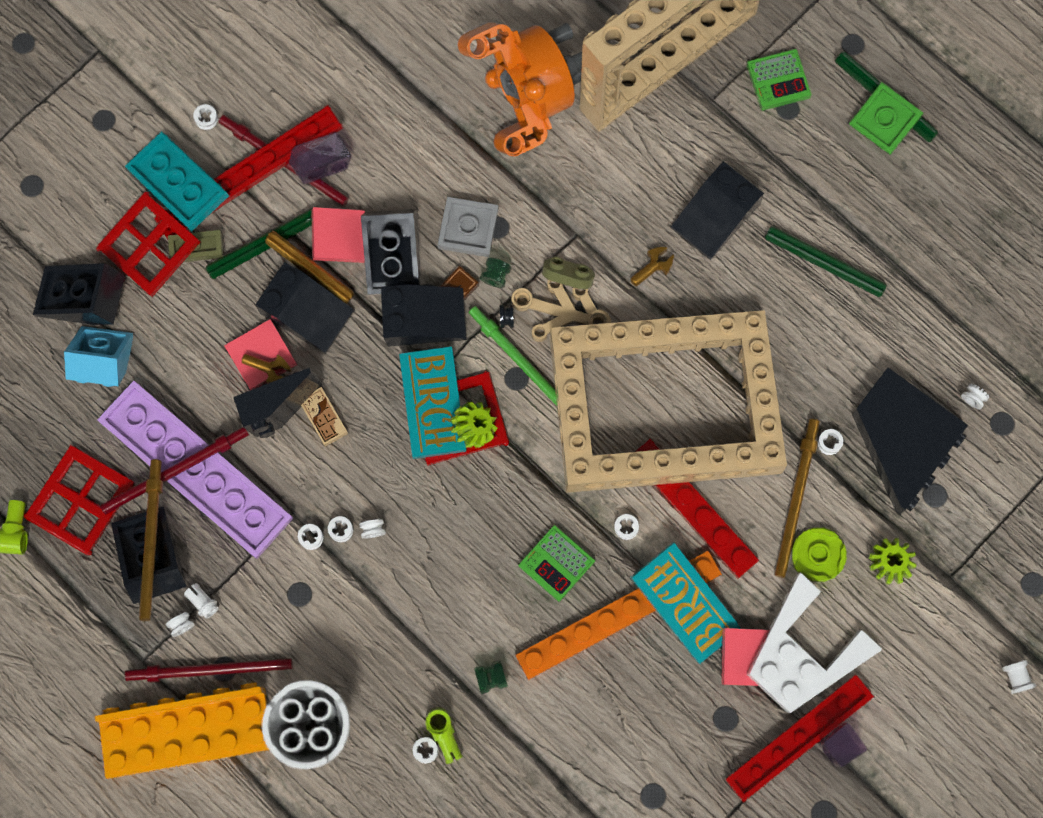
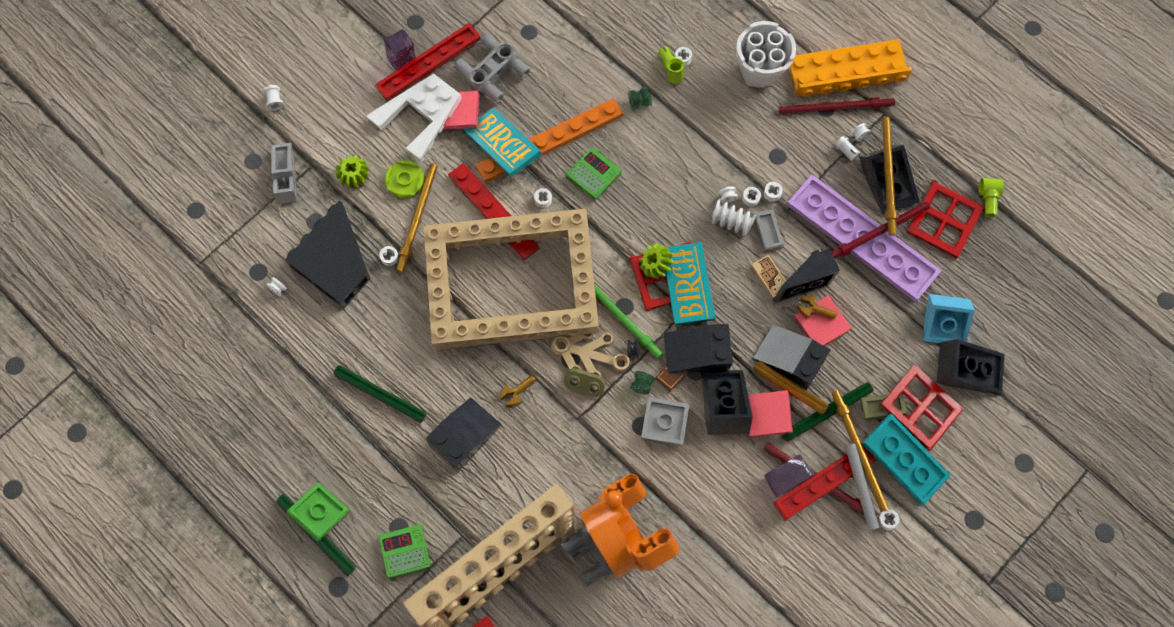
camera: 175 degrees right, 5 degrees down
(234, 145) = (862, 487): none -> light grey piece
(246, 231) = (843, 412): none -> pearl gold bar
(320, 481) = (768, 230): none -> light grey tile
(367, 492) = (732, 218): none -> white piece
(705, 726) = (492, 68): none -> light grey piece
(987, 560) = (283, 173): none -> light grey slope

